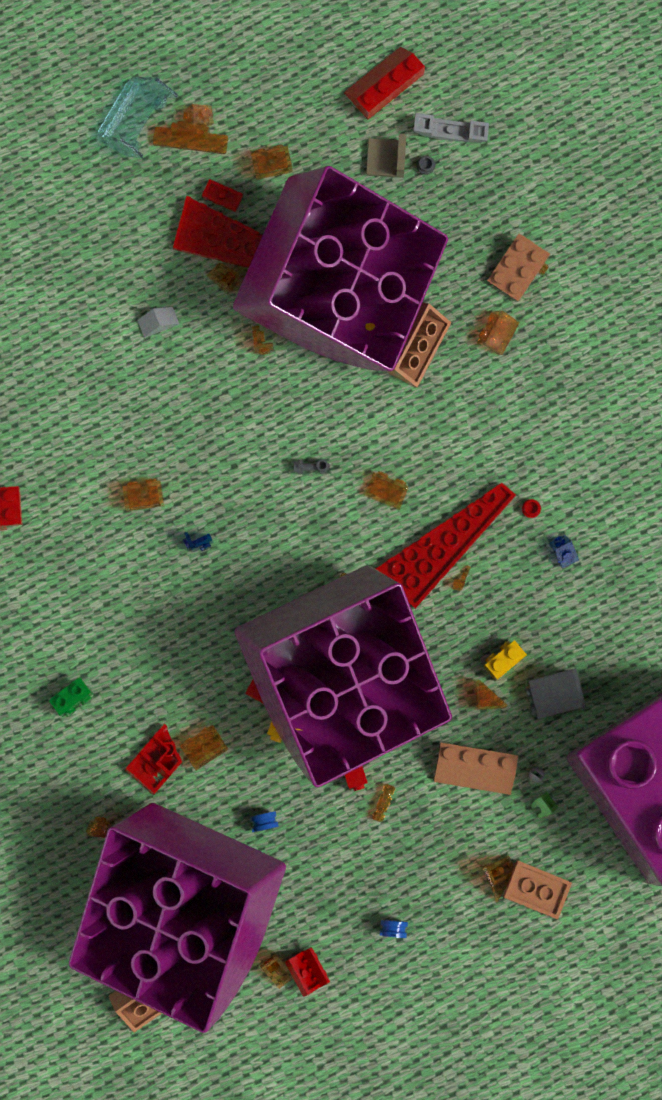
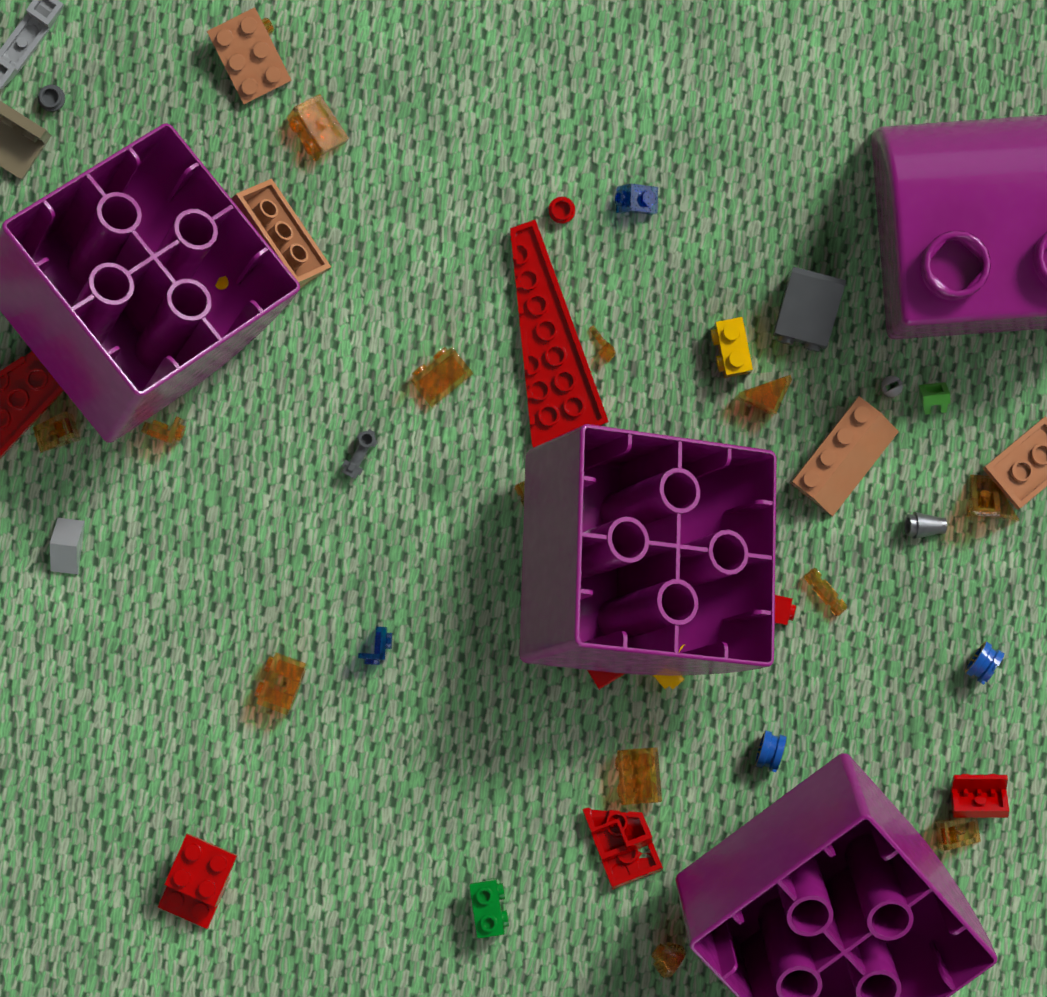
camera: 55 degrees left, 5 degrees up
(460, 843) = (924, 525): none -> flat silver cone

